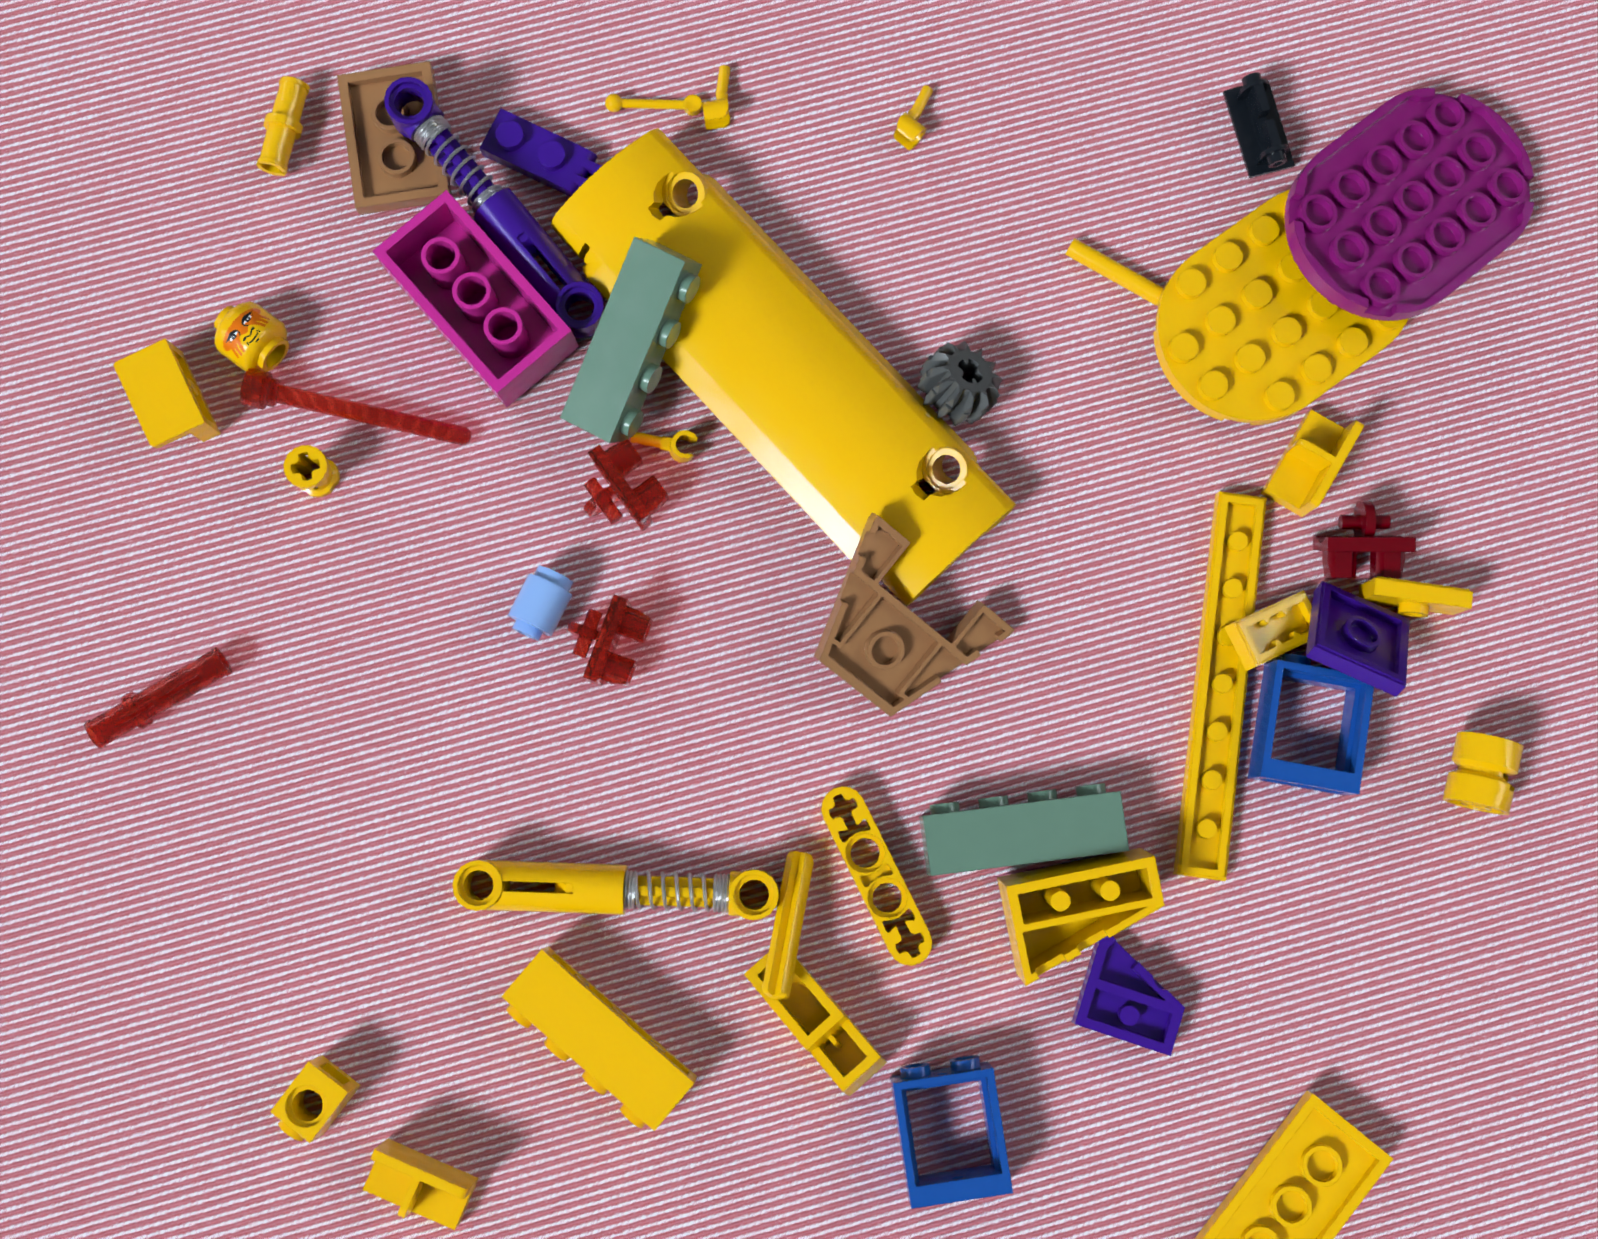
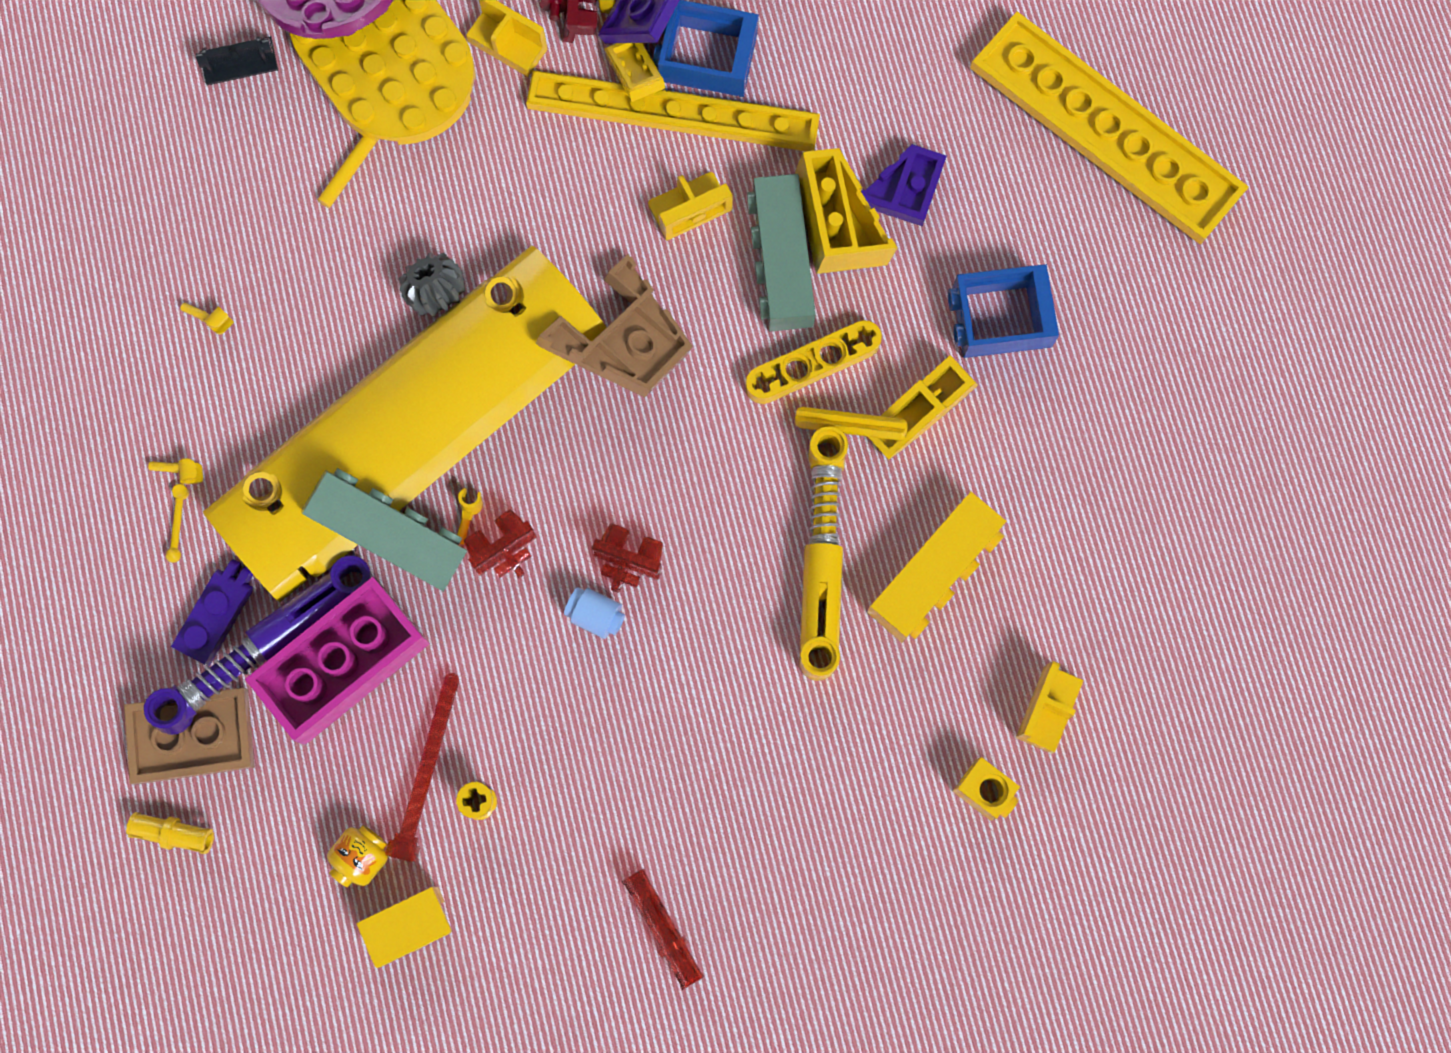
camera: 90 degrees left, 5 degrees down
(1088, 709) = (690, 204): none -> yellow panel

